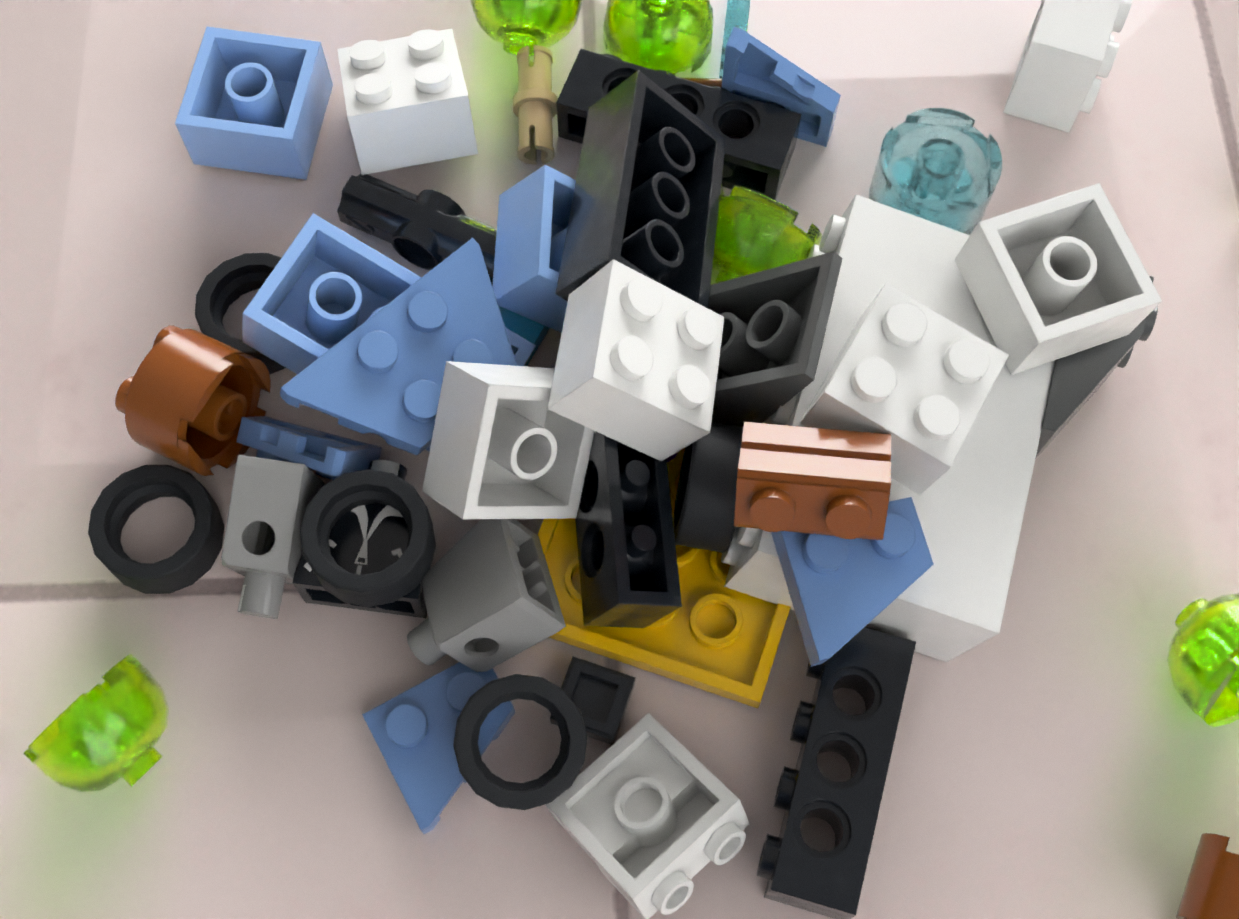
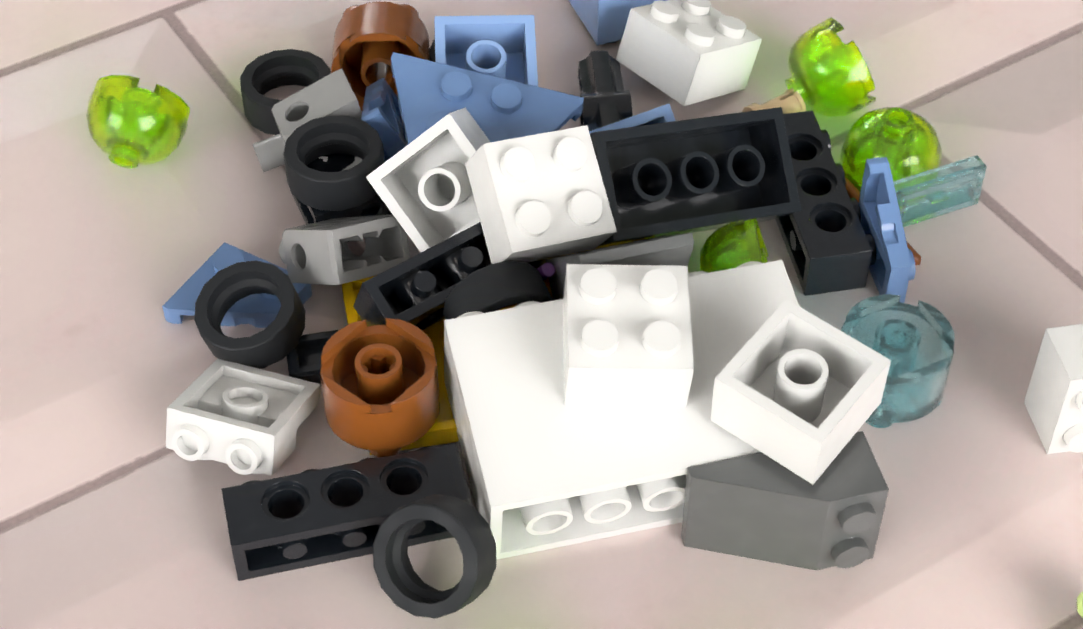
camera: 60 degrees right, 20 degrees down
(752, 622) = (380, 385): none -> dark orange brick
(813, 481) = (502, 301): dark orange brick -> none
(848, 582) = (468, 376): medium blue wing -> none
(946, 689) = (396, 571): none -> black tyre

